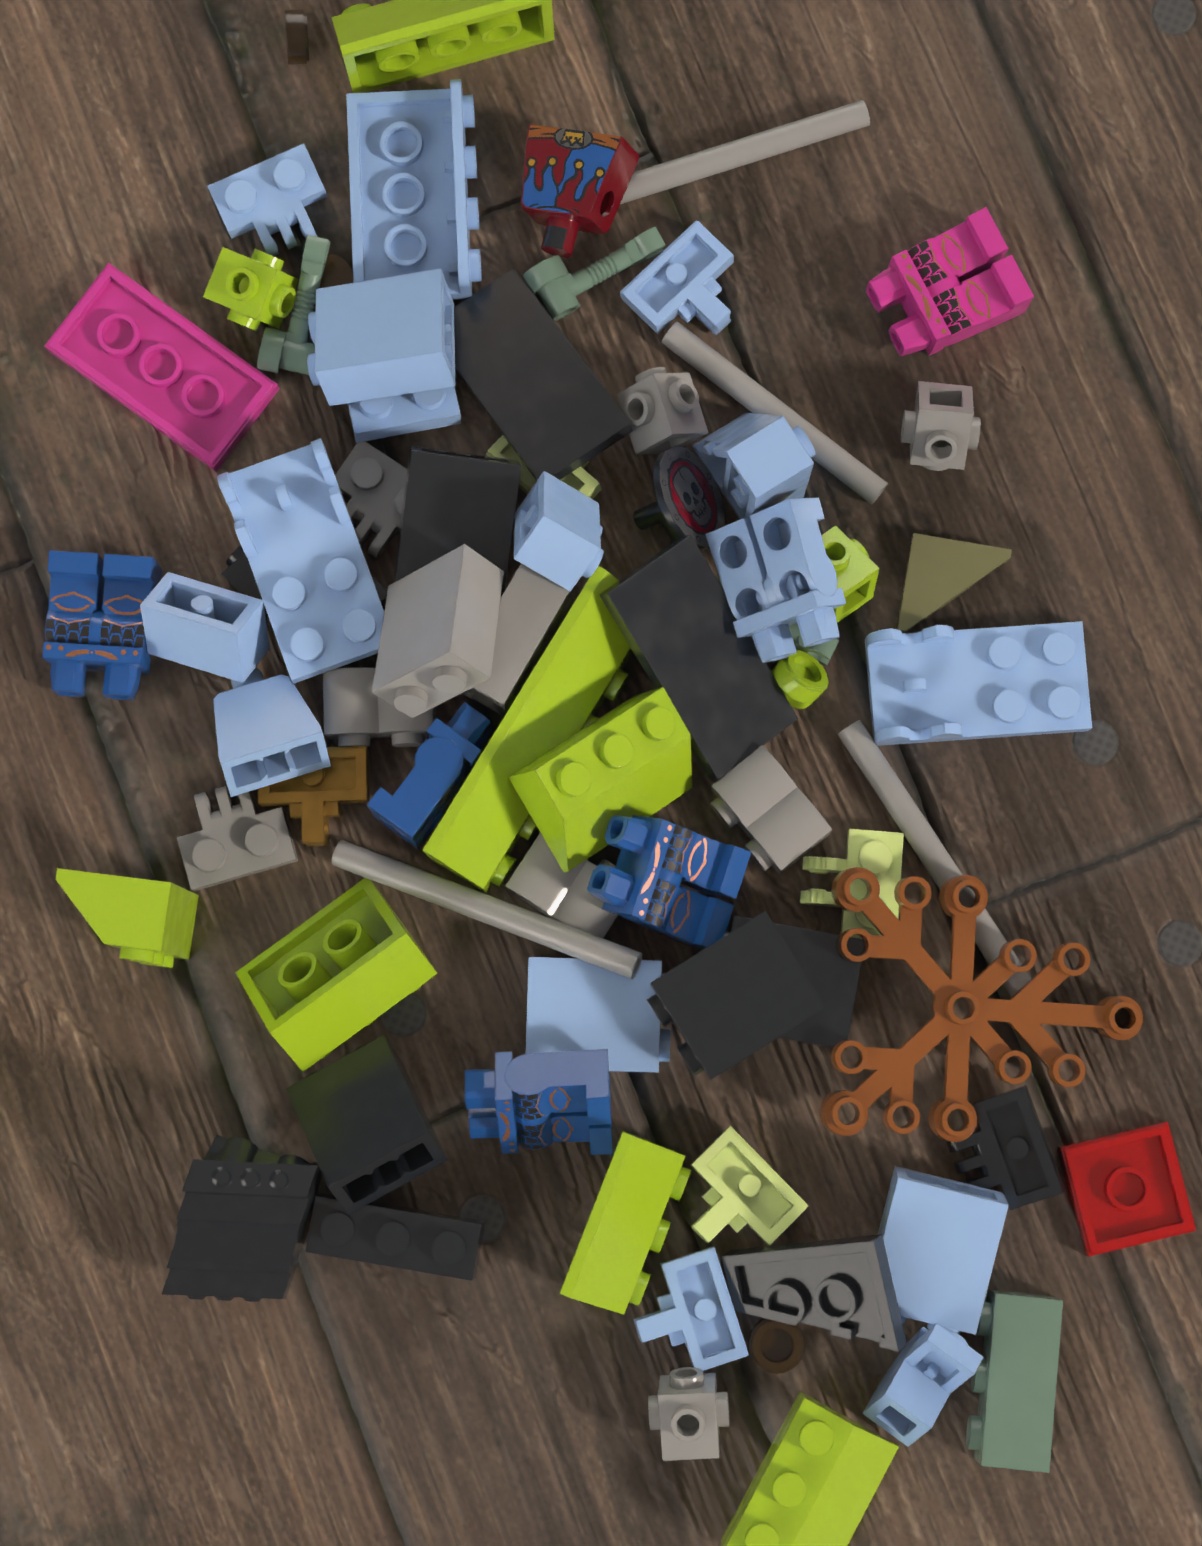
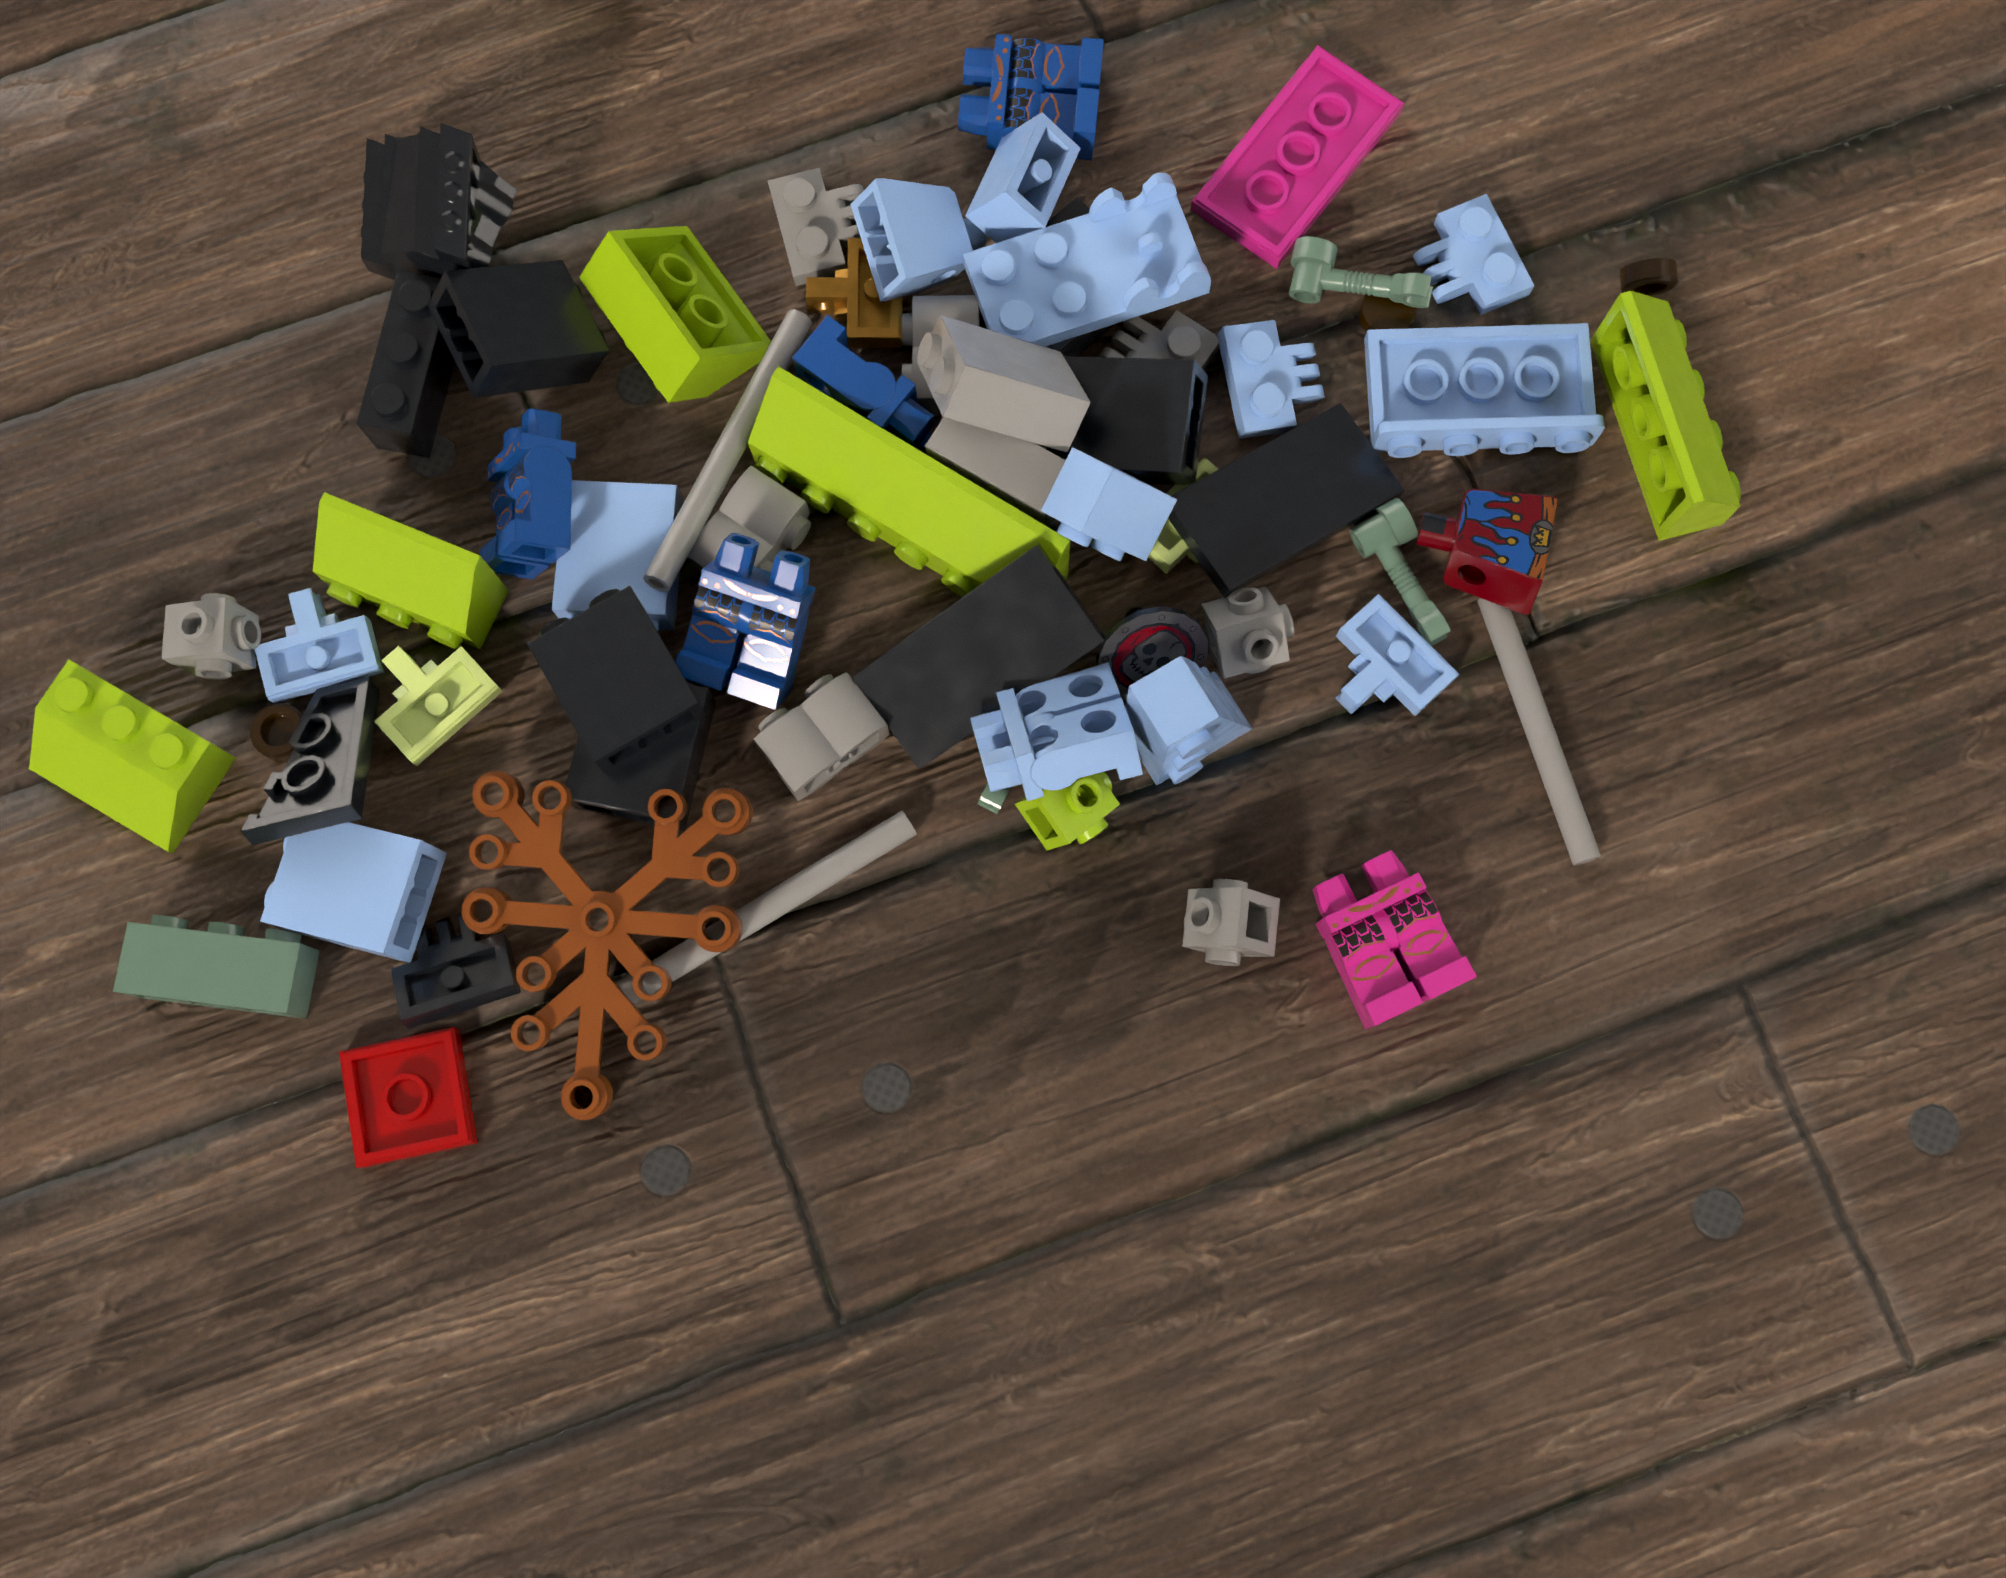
camera: 90 degrees right, 5 degrees down
(140, 916) = (731, 104): lime slope -> none
(252, 288) = (1376, 240): lime brick -> none
(383, 337) = (1323, 351): light blue brick -> none
(616, 766) = (860, 561): lime slope -> none
(761, 401) = (1249, 755): light grey piece -> none
(800, 679) = (959, 771): lime tile -> none
(867, 849) = (768, 843): yellowish green hinge -> none
(921, 1382) = (221, 868): light blue brick -> none
(940, 572) = (1073, 924): olive tile -> none
(977, 682) = (951, 961): light blue hinge -> none

